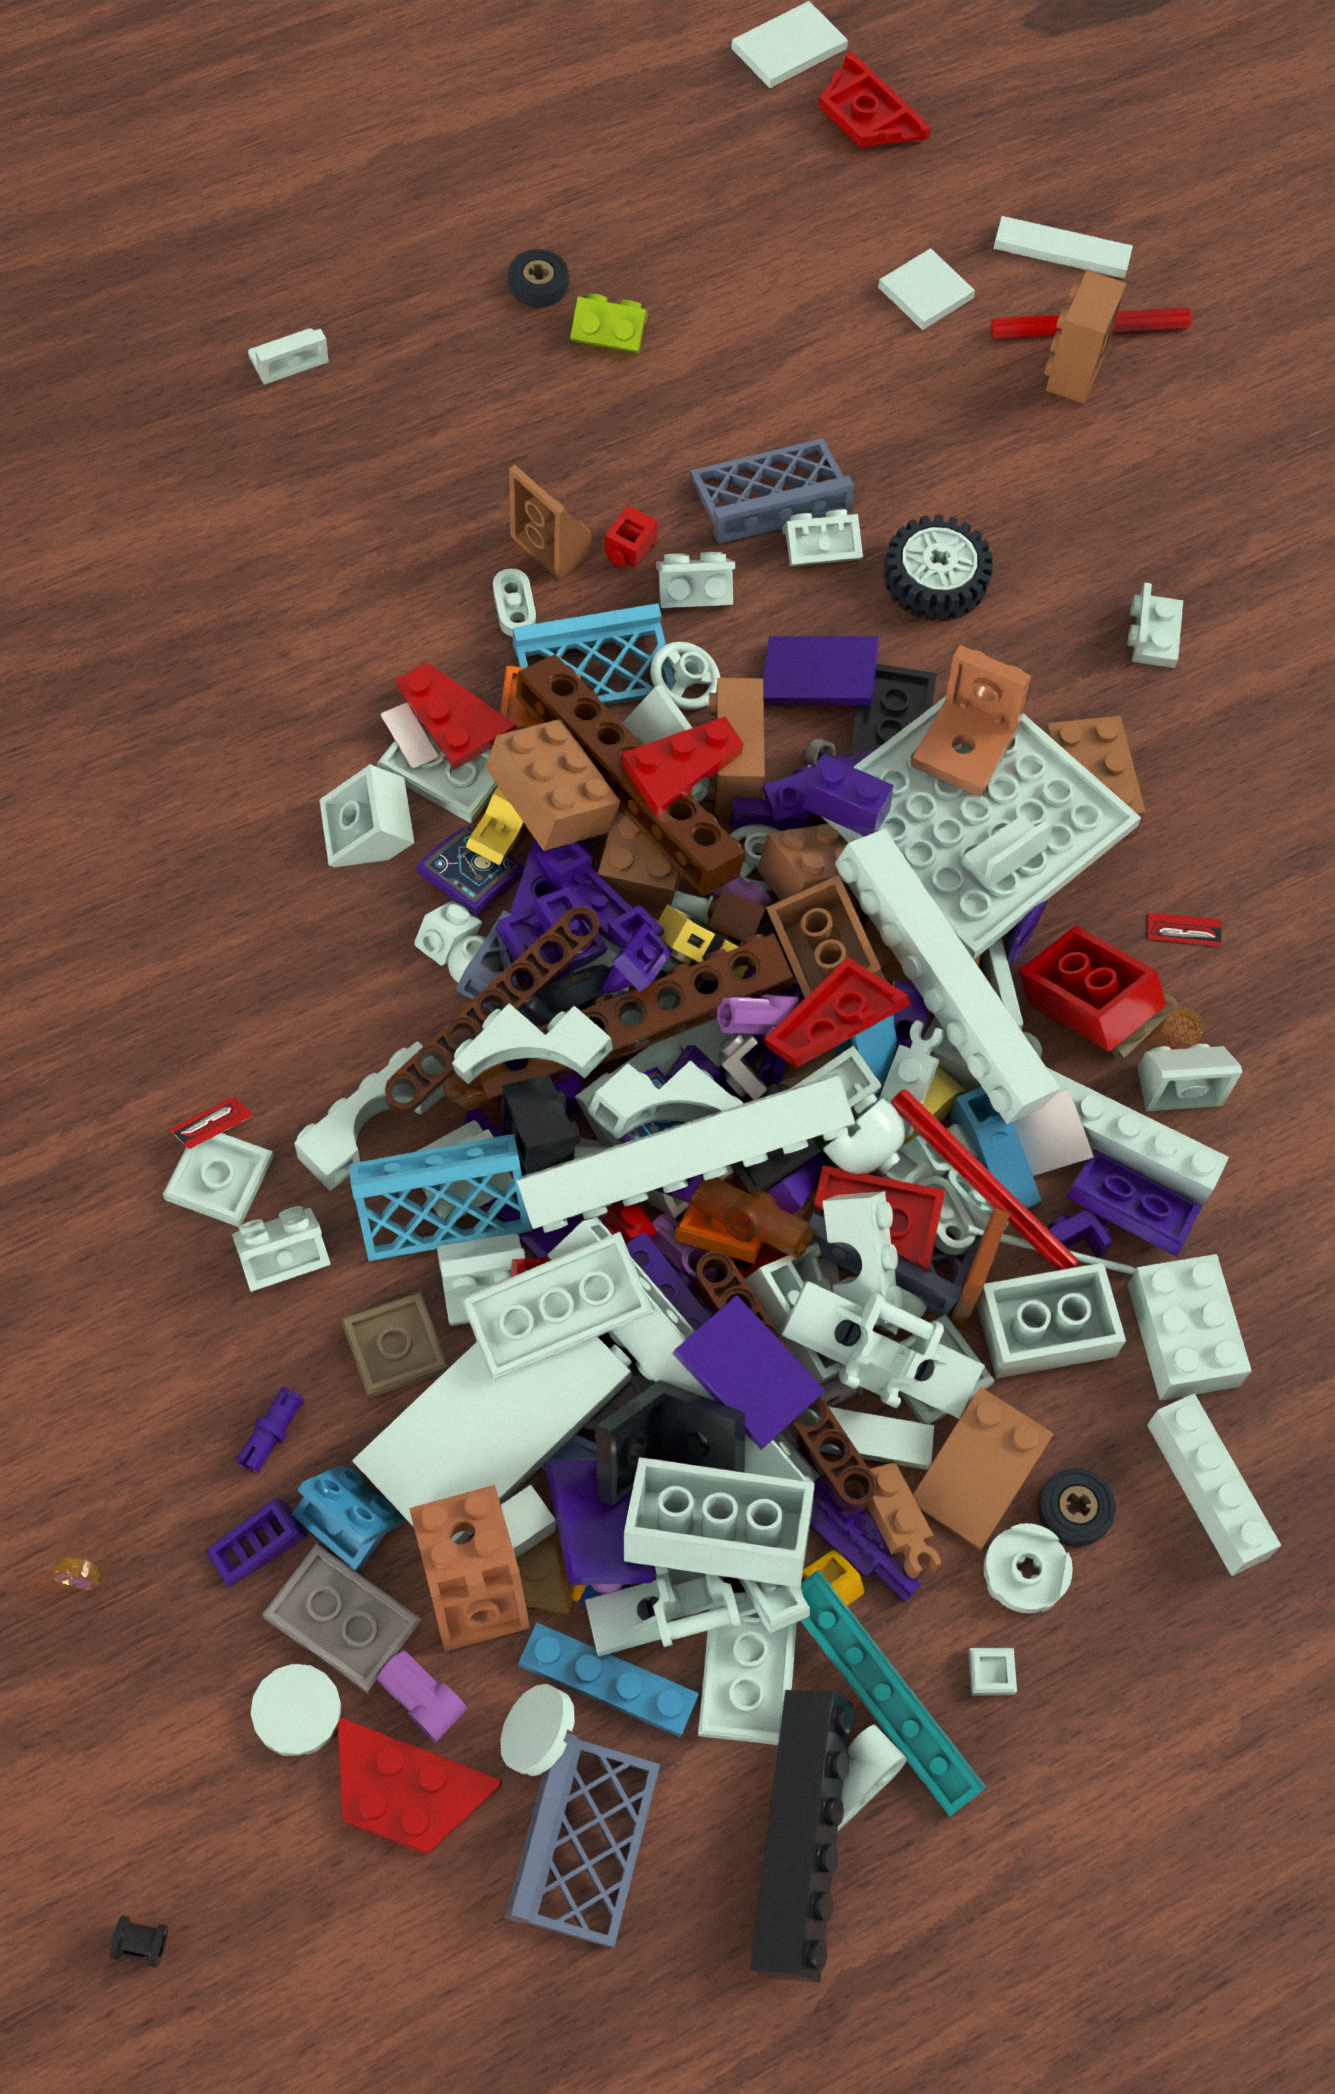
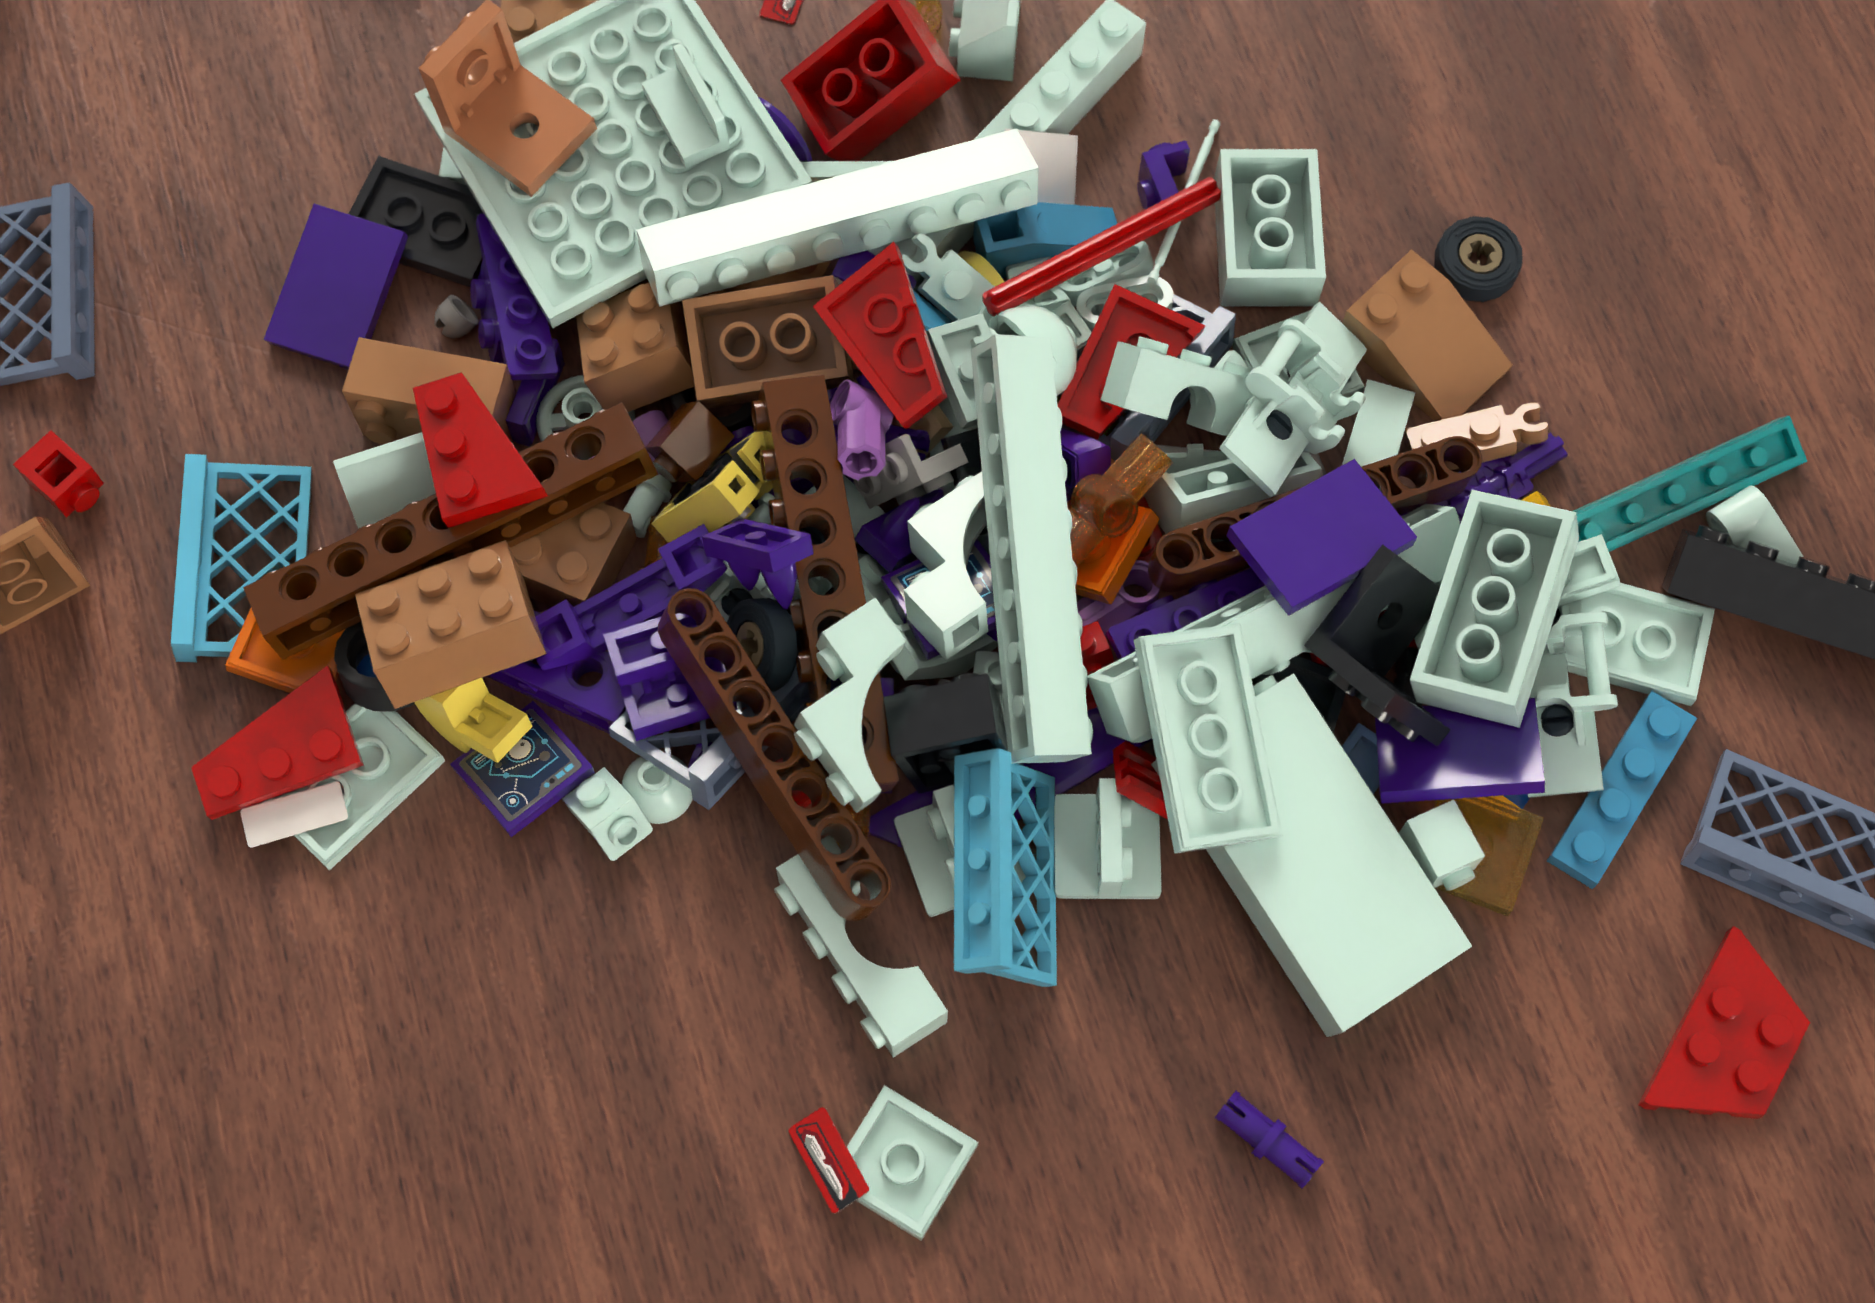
camera: 75 degrees left, 5 degrees up
(264, 1554) = (1430, 1168): dark purple slope -> none
(280, 1247) = (1022, 1090): light aqua bracket -> none
(296, 1710) = (1626, 1154): light aqua tile -> none
(341, 1618) = (1517, 1085): light grey tile -> none
(346, 1514) = (1397, 1055): dark azure bracket -> none
(366, 818) = (413, 891): light aqua slope -> none
(394, 1345) = (1175, 970): dark tan tile -> none
(429, 1703) = (1635, 995): medium lavender piece -> none
(474, 1583) = (1521, 910): nougat bracket -> none
(513, 605) = (120, 643): light aqua plate -> none
(536, 1730) = (1689, 870): light aqua tile -> none
(691, 668) = (295, 444): light aqua piece -> none
(695, 581) = (149, 407): light aqua bracket -> none
(823, 539) = (132, 243): light aqua bracket -> none
(847, 796) = (570, 267): dark purple brick -> none
(937, 568) = (218, 122): wheel -> none
(979, 1268) = (1213, 268): dark orange tile -> none
(992, 1671) = (1650, 386): light aqua tile -> none
(1048, 1555) = (1538, 347): light aqua plate -> none
(1134, 1202) = (1139, 109): dark purple tile -> none
(1188, 1327) = (1293, 94): light aqua brick -> none
(1213, 1484) = (1476, 116): light aqua brick -> none

